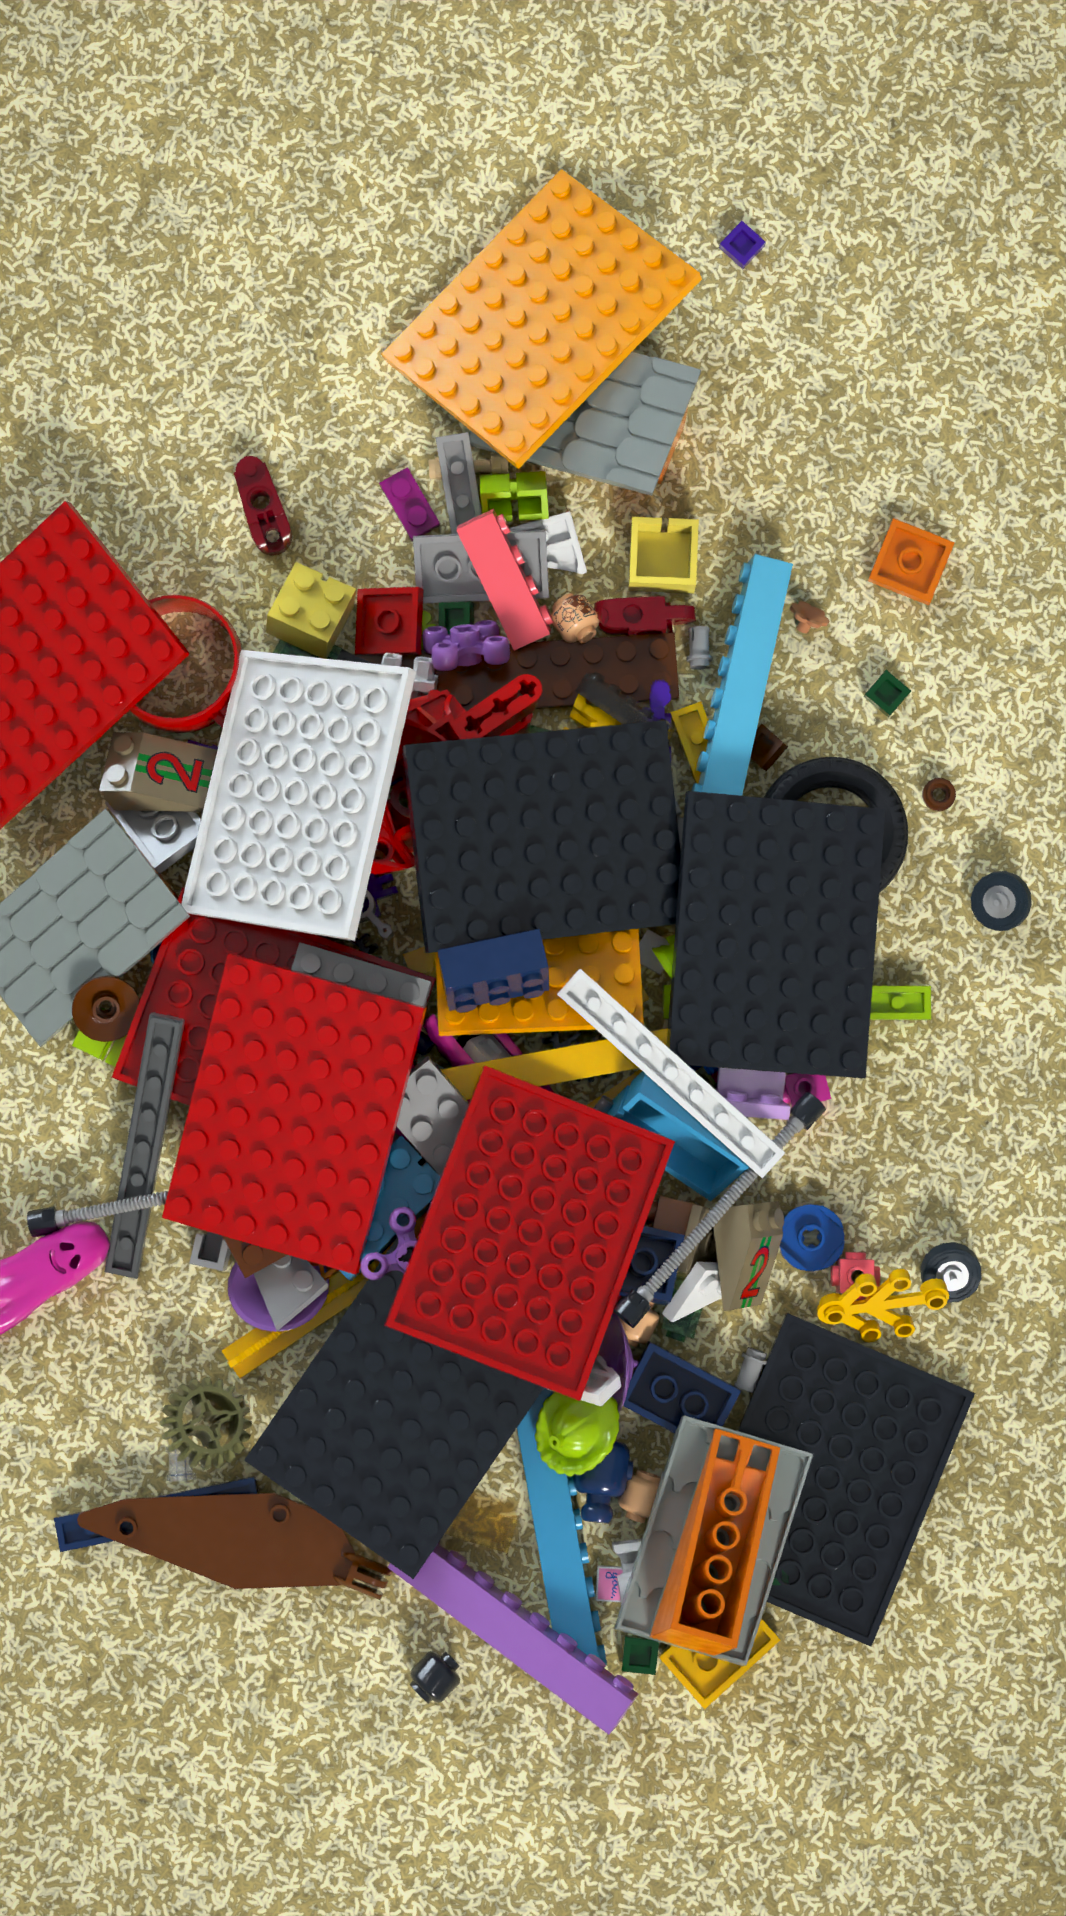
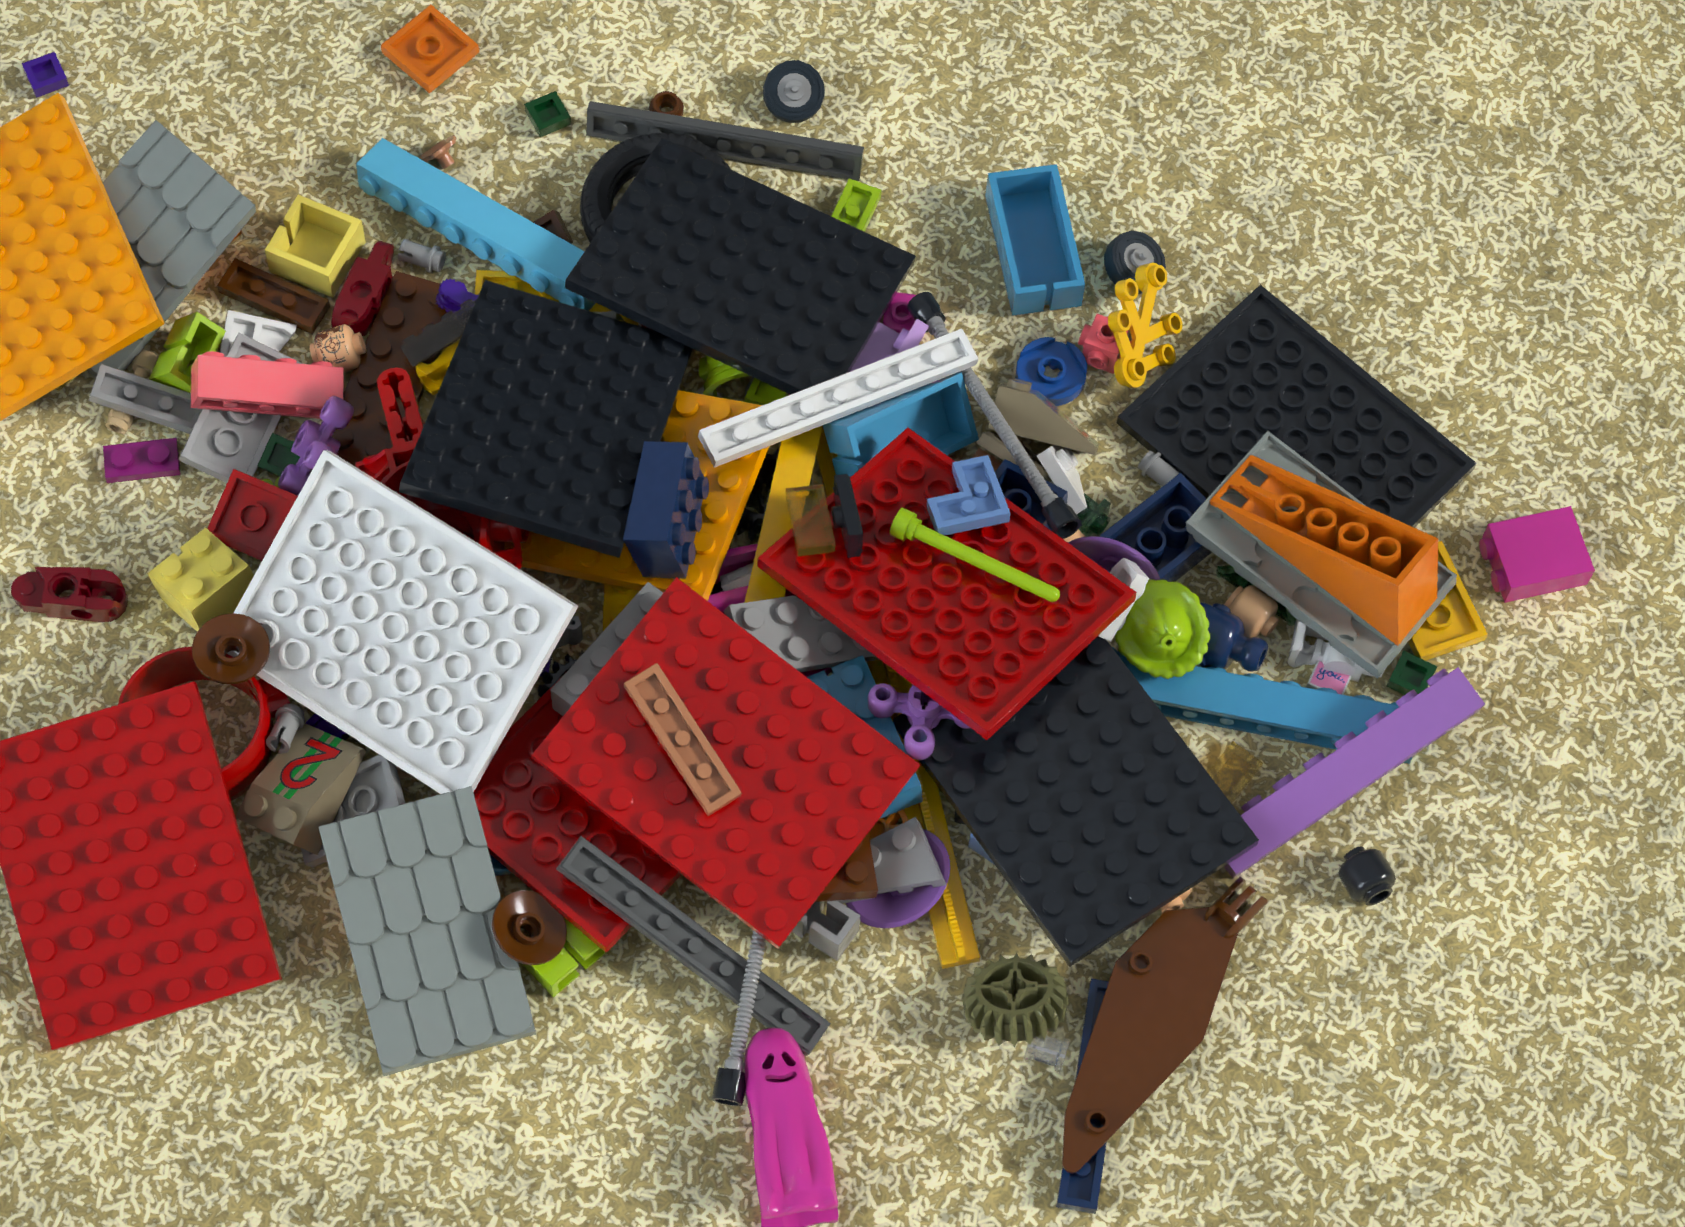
camera: 75 degrees left, 20 degrees down
(202, 737) = (288, 721): none -> light grey pin
(232, 649) = (228, 634): none -> reddish brown dish
(283, 1073) = (682, 739): none -> nougat plate
(538, 1095) = (810, 520): none -> clear yellow tile
(549, 1125) = (846, 515): none -> black plate
(561, 1184) = (908, 526): none -> lime piece
(606, 540) = (273, 296): none -> reddish brown plate
(611, 1234) = (976, 504): none -> medium blue plate
(801, 1728) = (1536, 554): none -> dark pink brick
(924, 862) = (730, 140): none -> dark grey tile
(933, 1175) = (1034, 239): none -> dark azure piece

